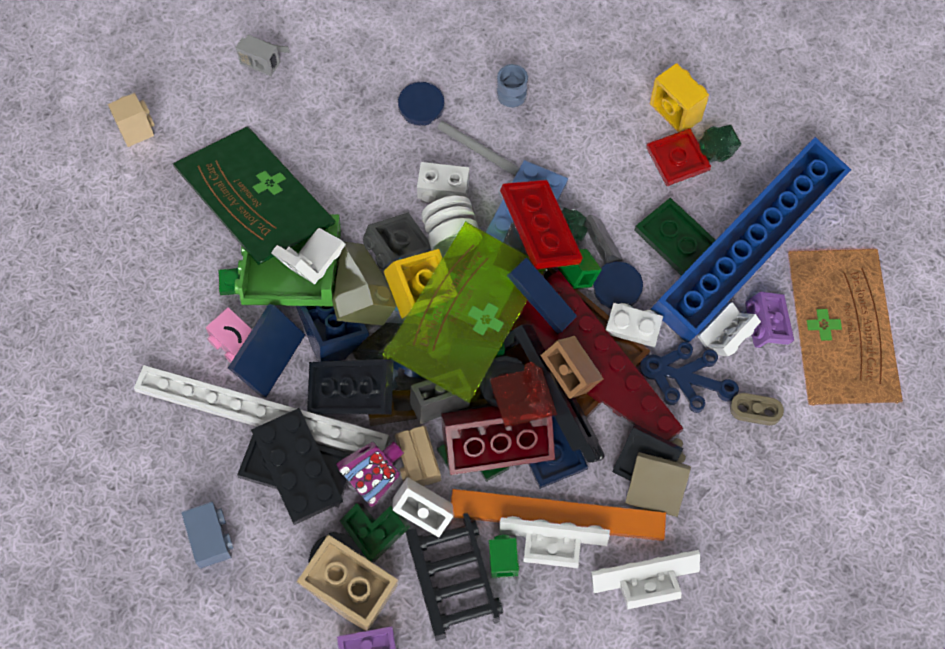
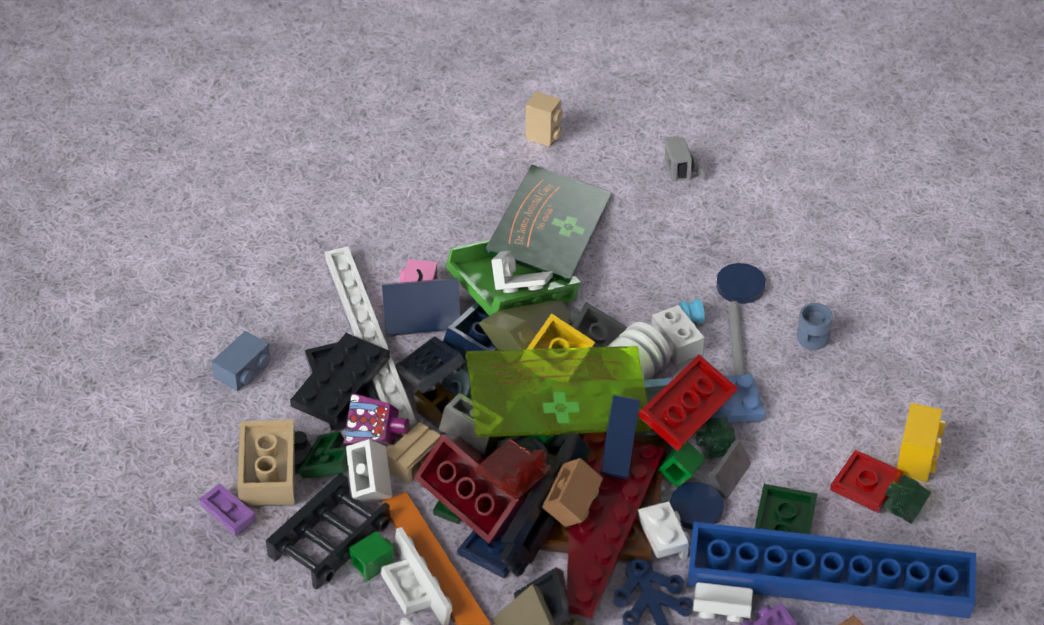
camera: 55 degrees right, 20 degrees down
(428, 153) = (694, 310): none -> medium azure wheel

